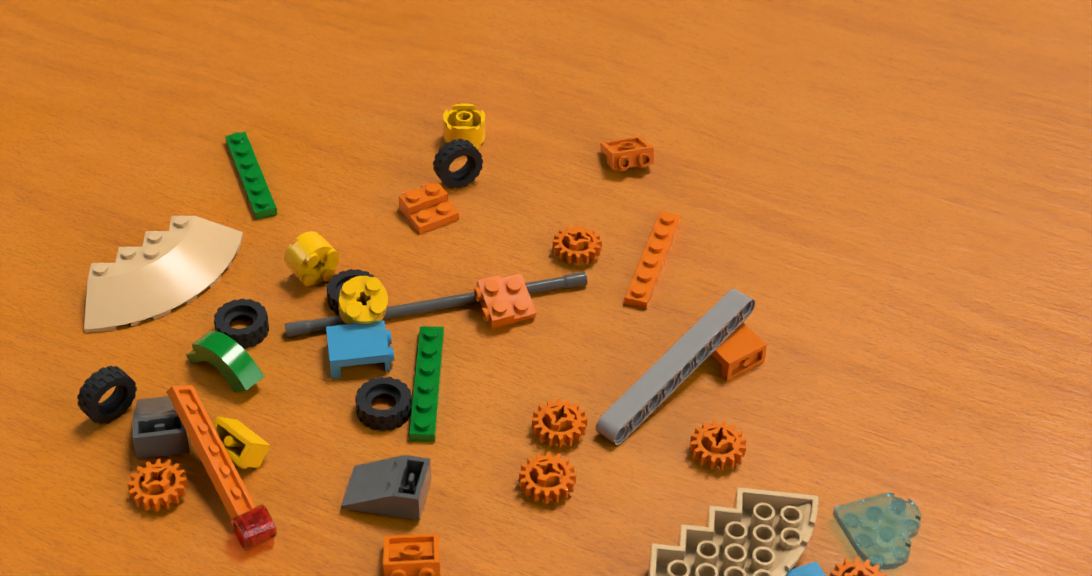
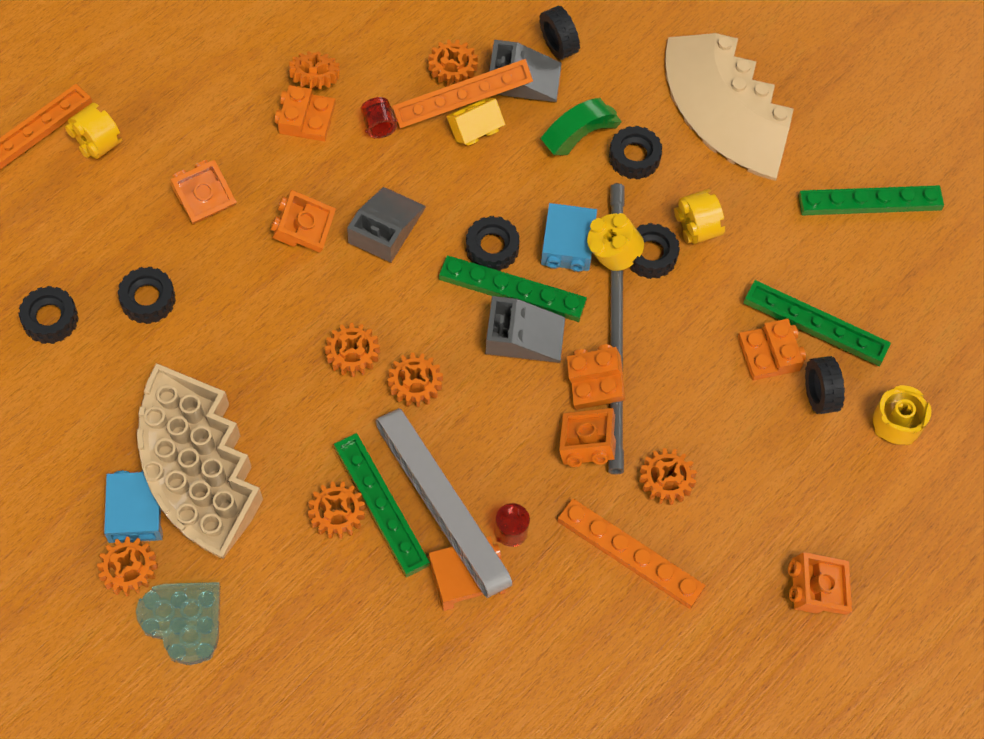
camera: 105 degrees right, 20 degrees up
(390, 187) = (817, 323): none -> green plate
(477, 361) = (524, 331): none -> dark grey slope
(566, 293) = (588, 437): none -> orange plate
(670, 324) = (512, 524): none -> clear red piece
(703, 409) = (381, 505): none -> green plate

